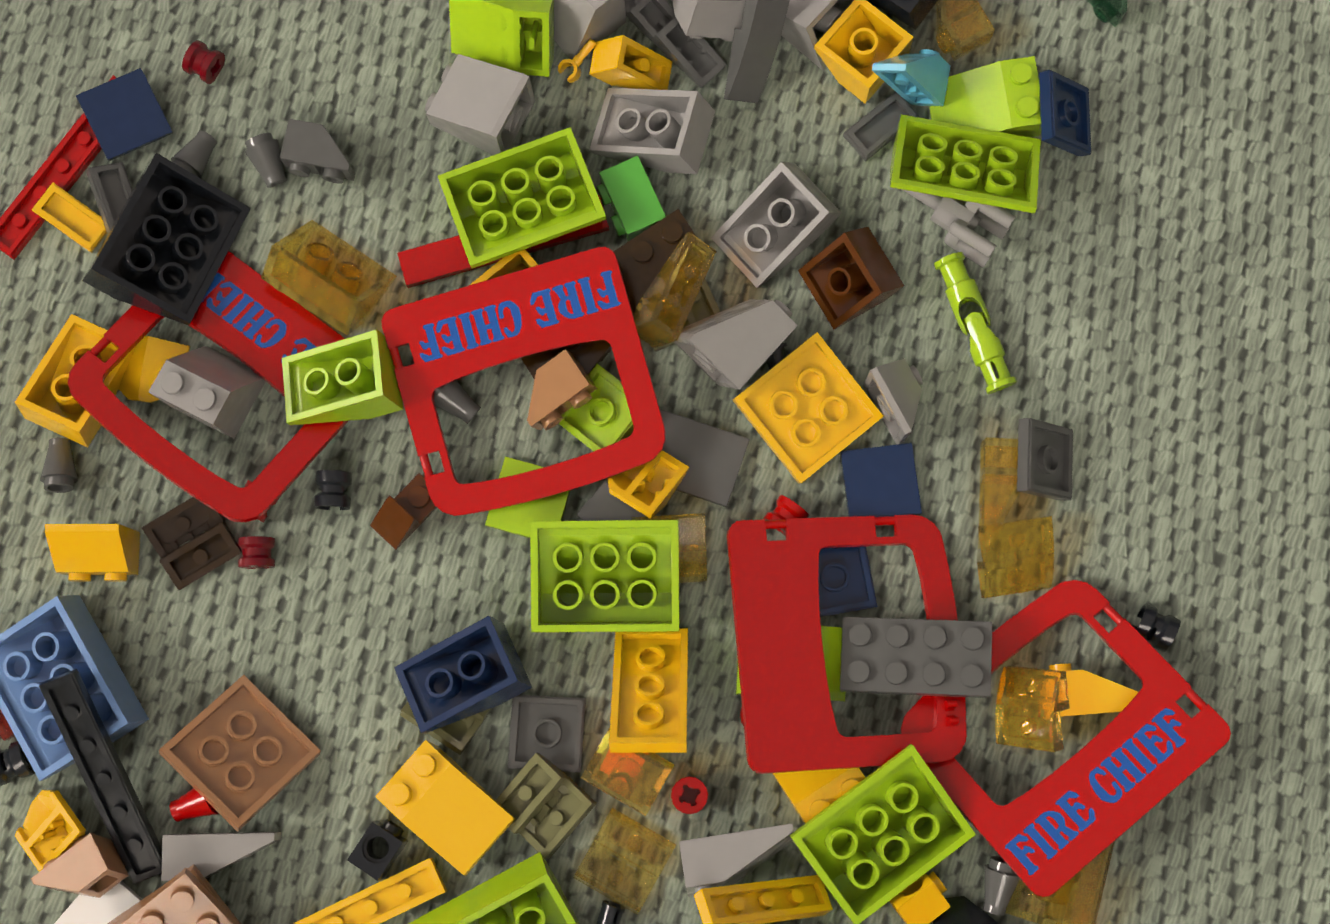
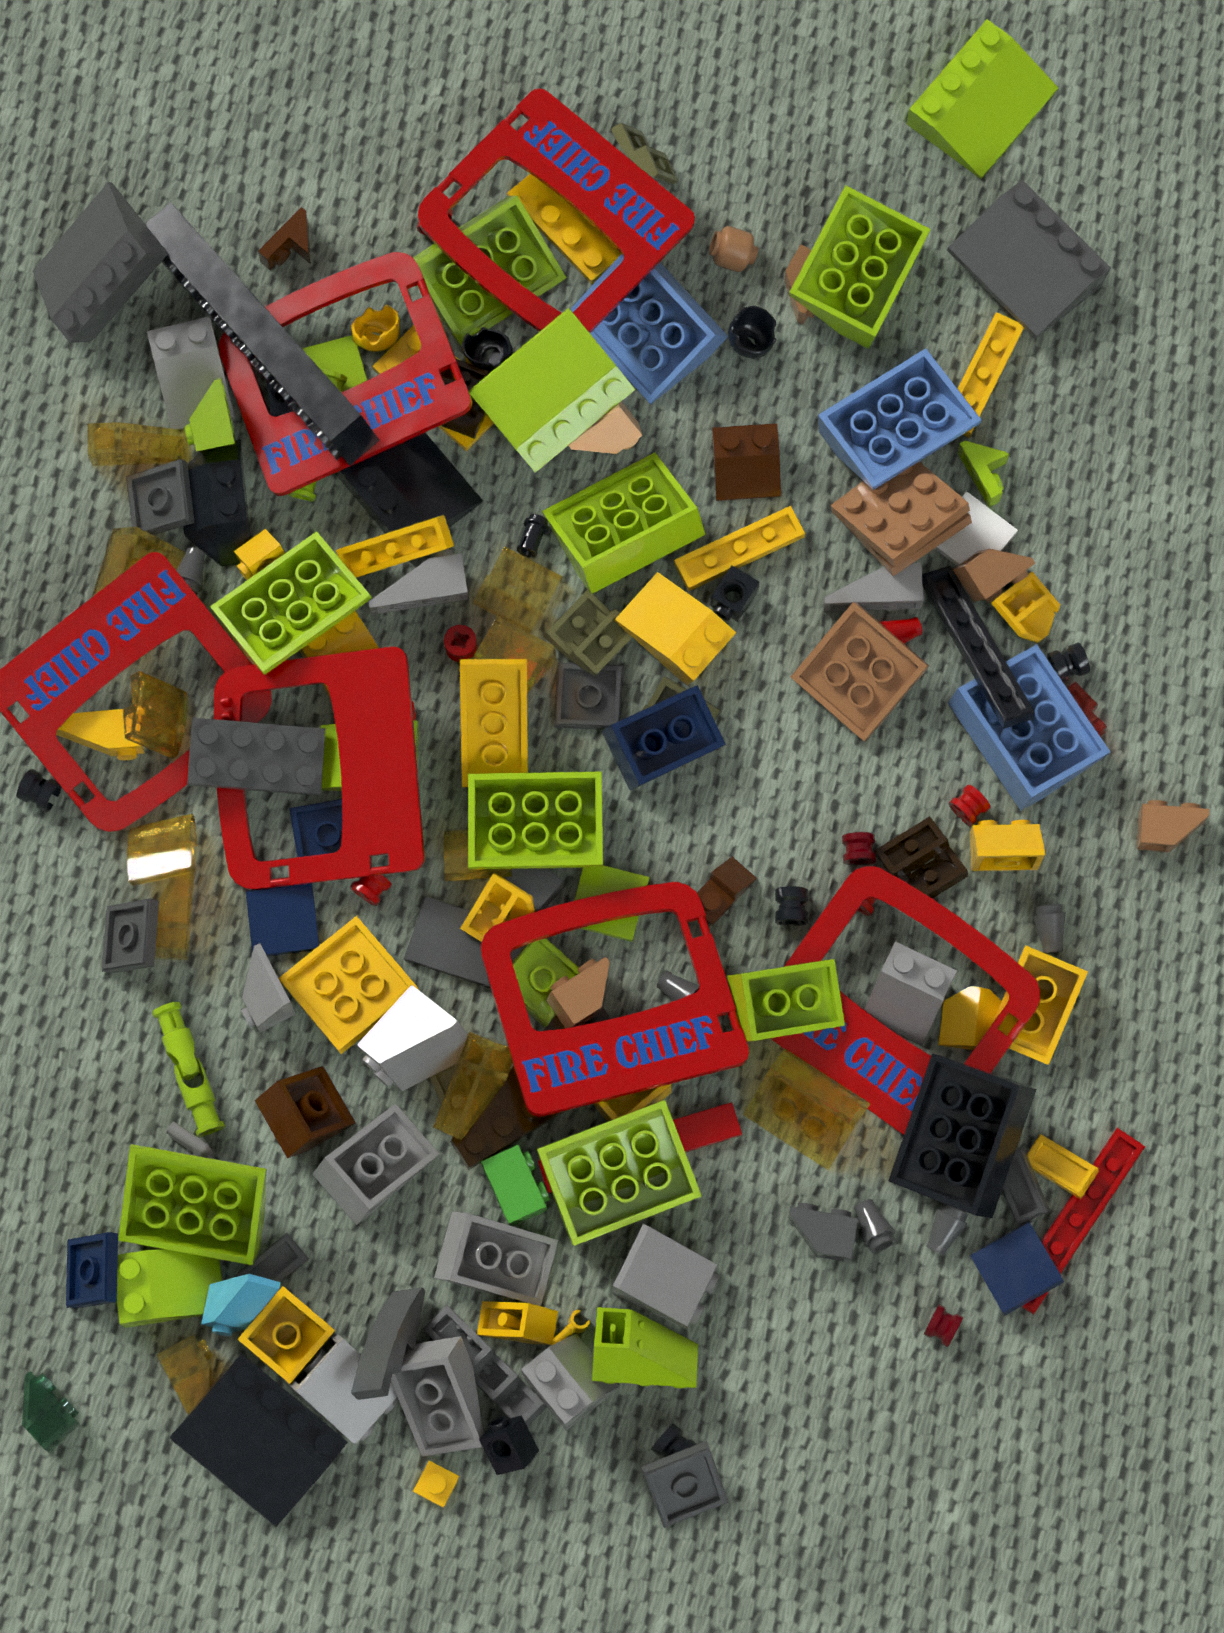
camera: 175 degrees right, 5 degrees down
(133, 600) = (969, 805): none -> red wheel

